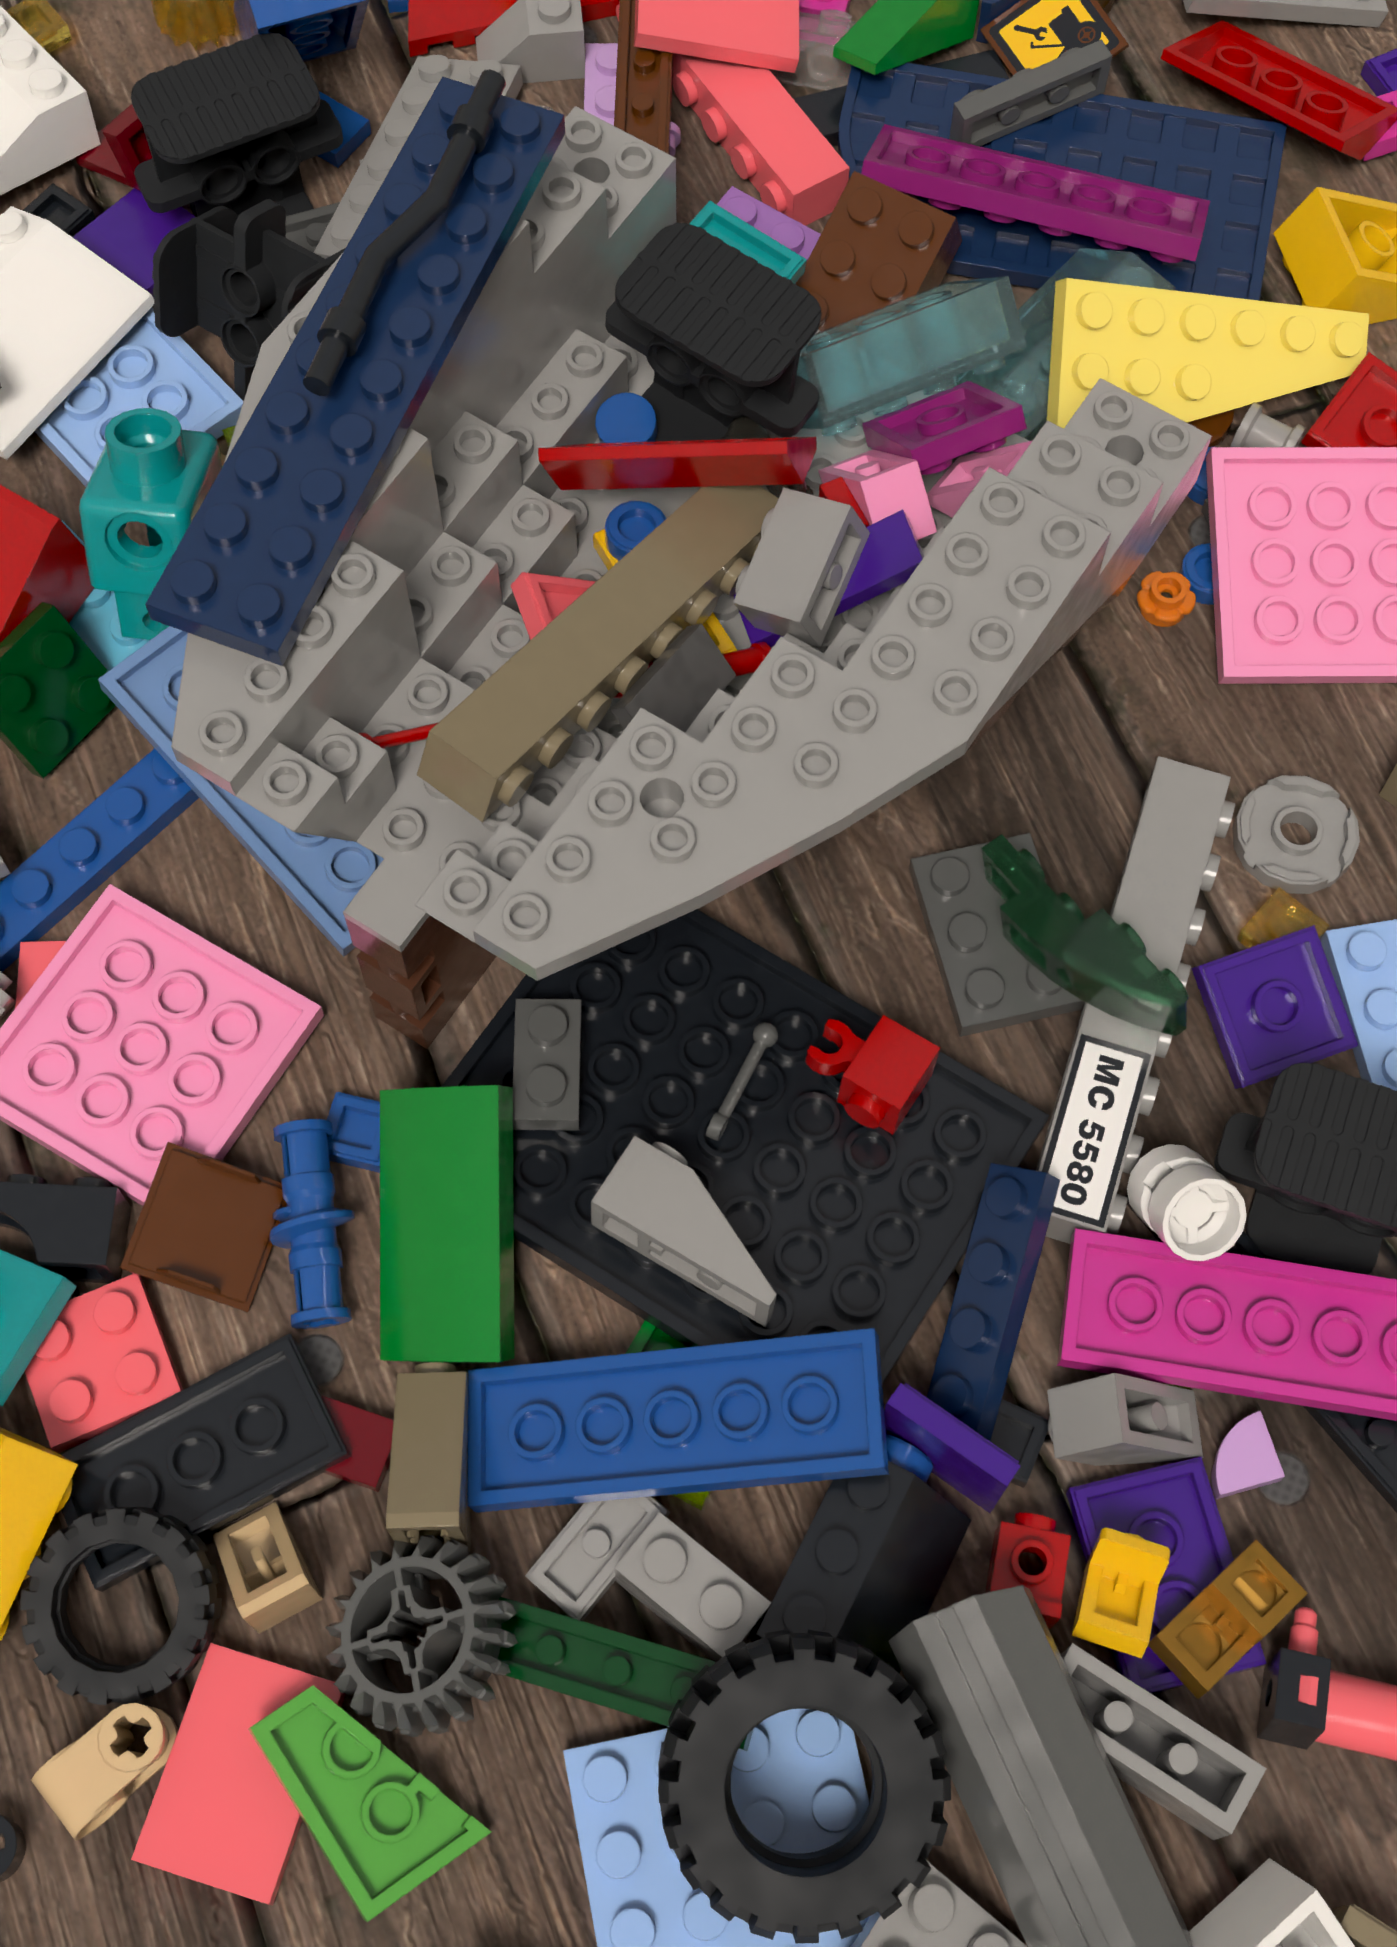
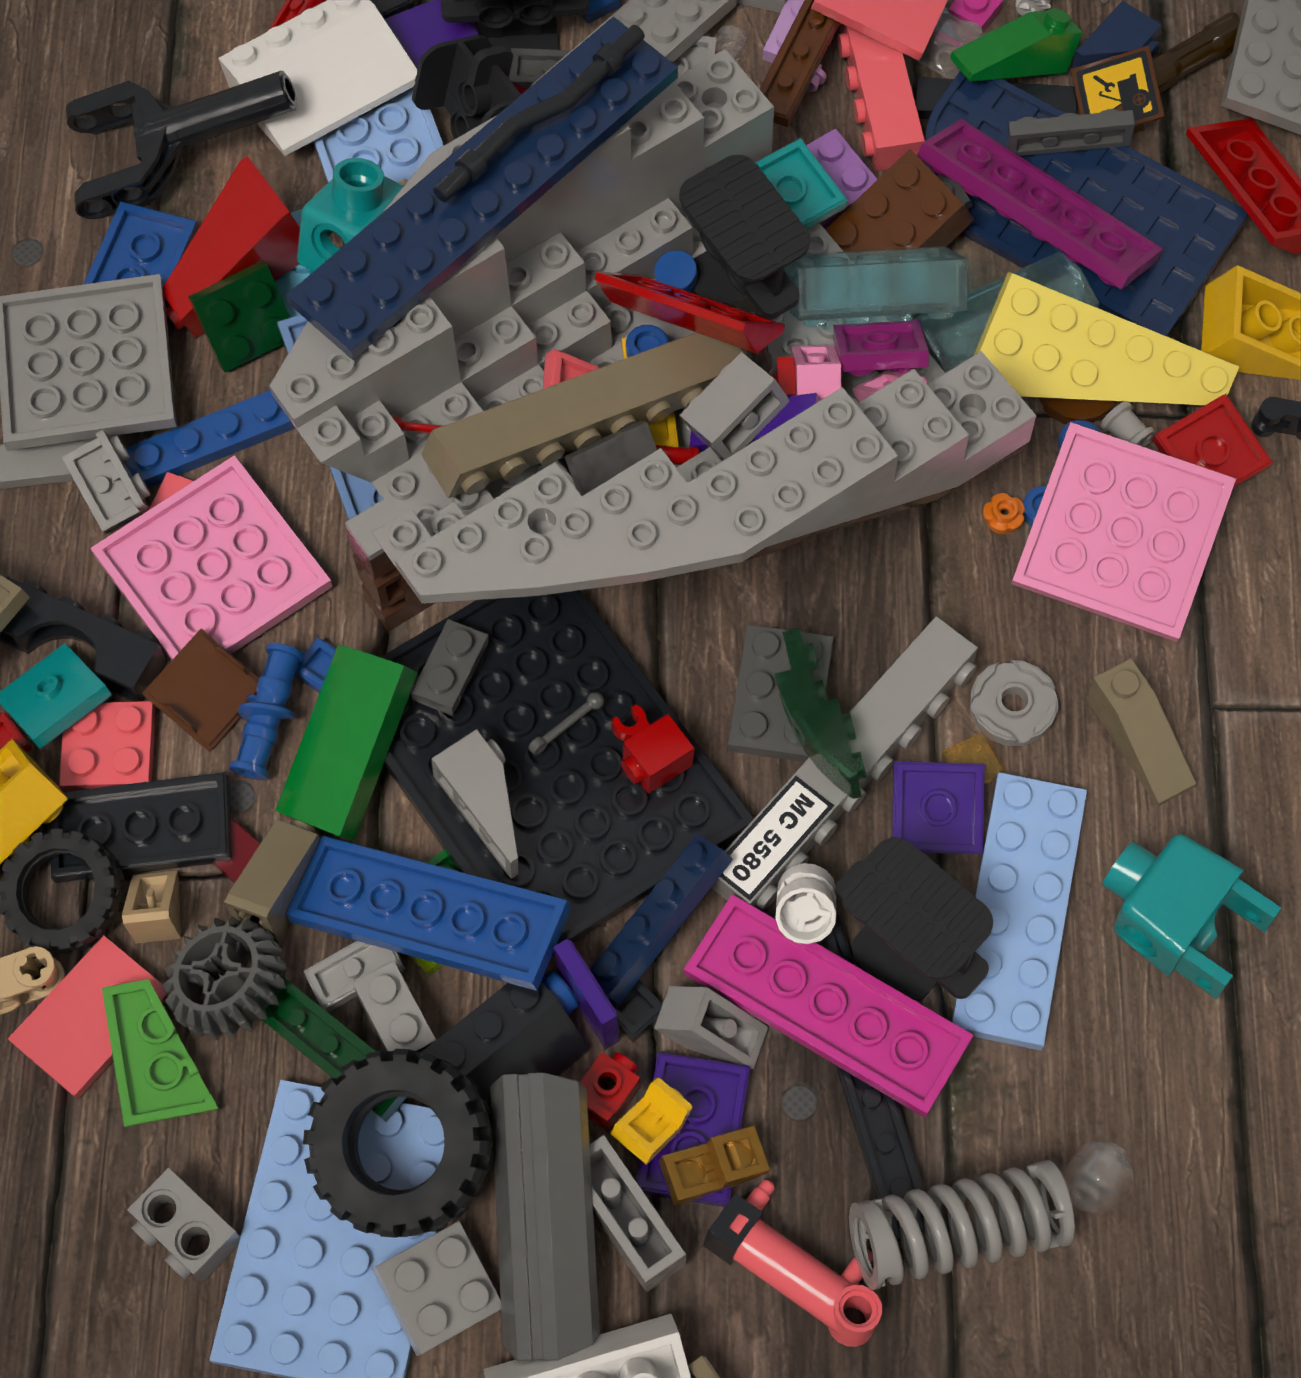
camera: 25 degrees right, 0 degrees up
(1245, 1459) = (778, 1079): lavender tile -> none

